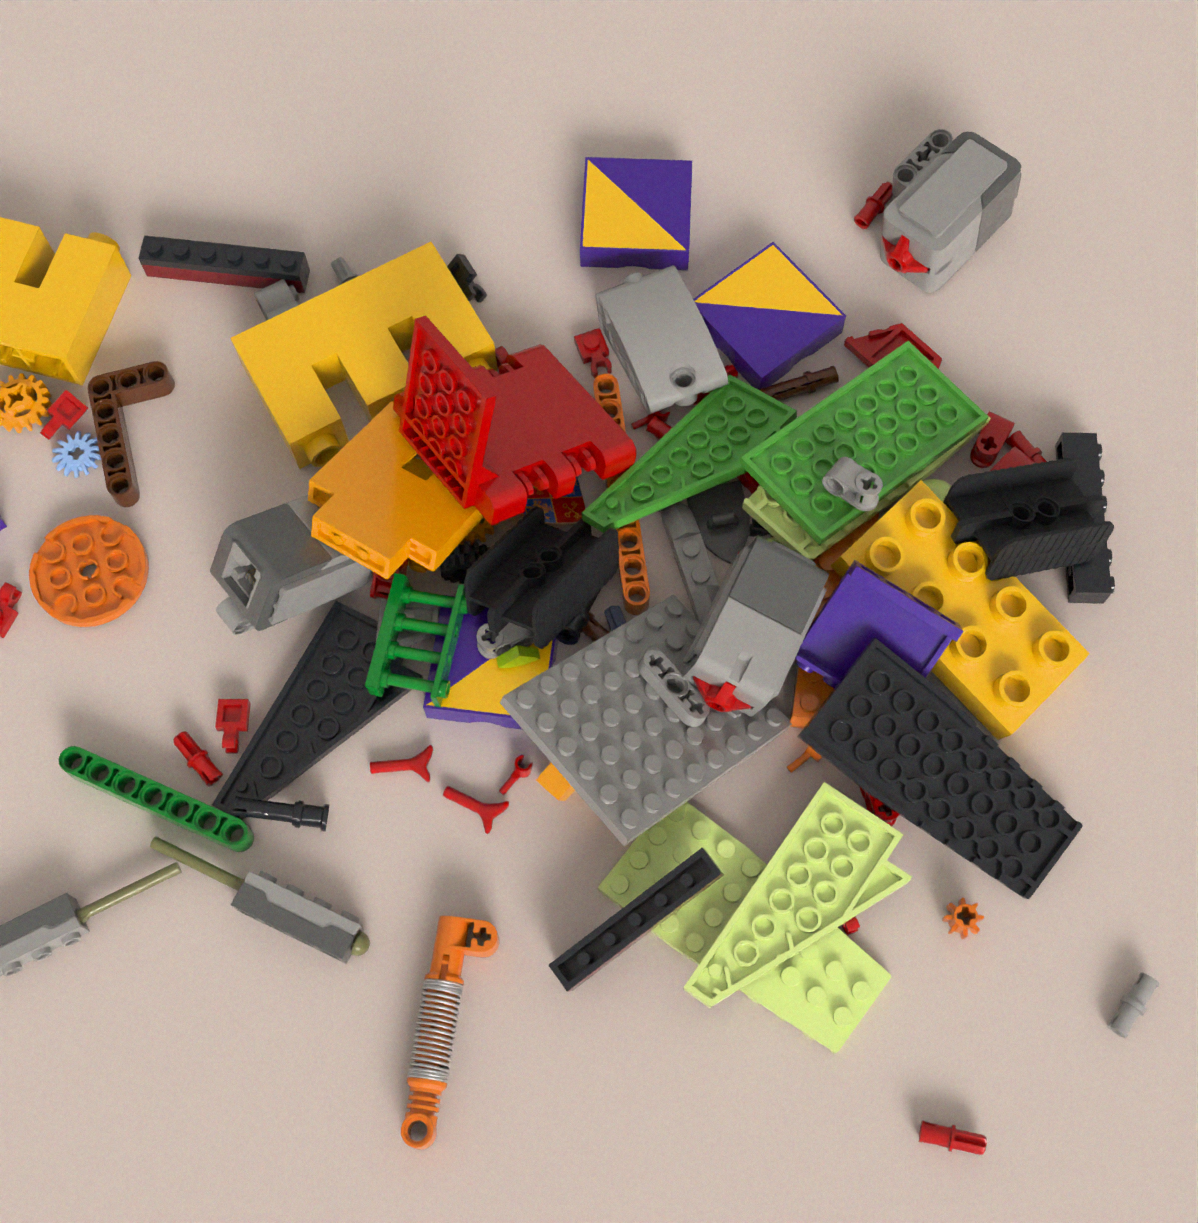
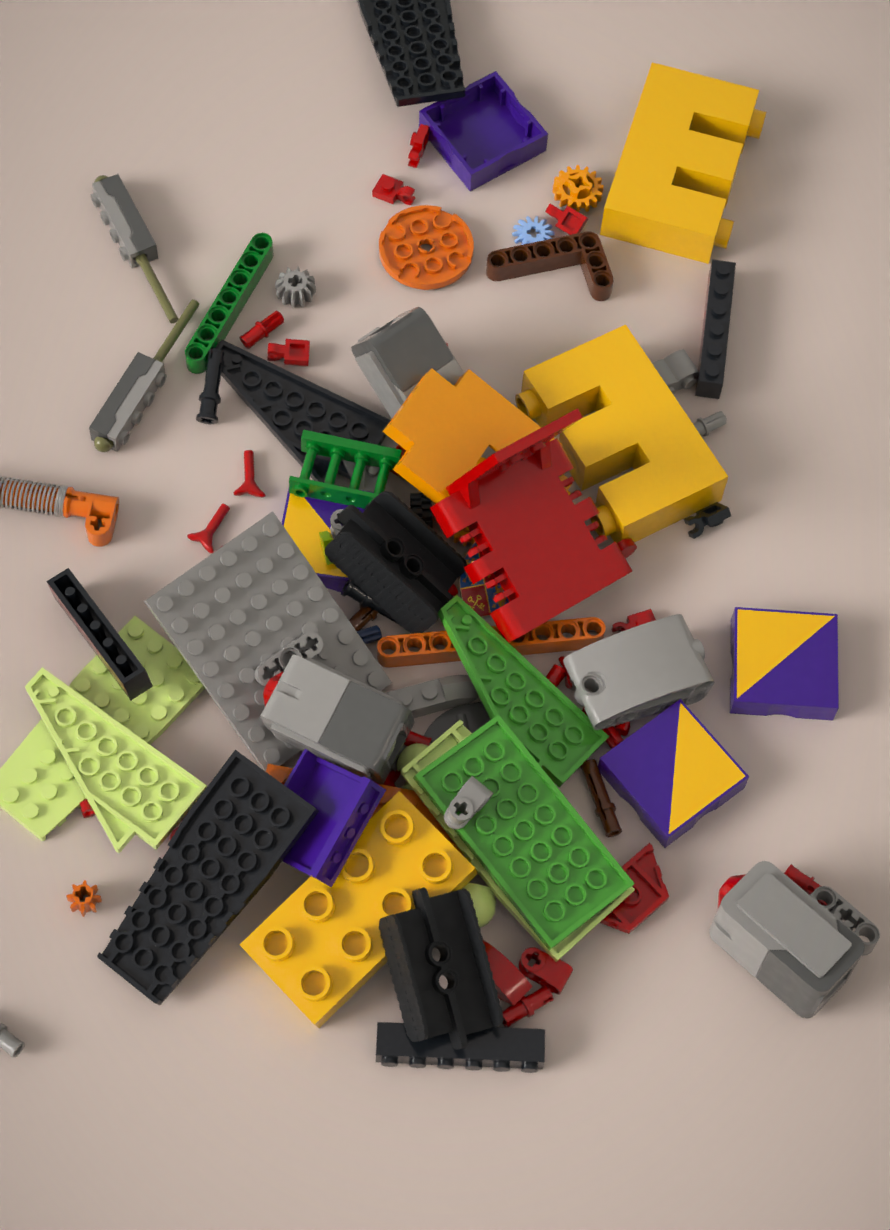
camera: 85 degrees right, 5 degrees down
(132, 711) = (295, 287): none -> light grey gear

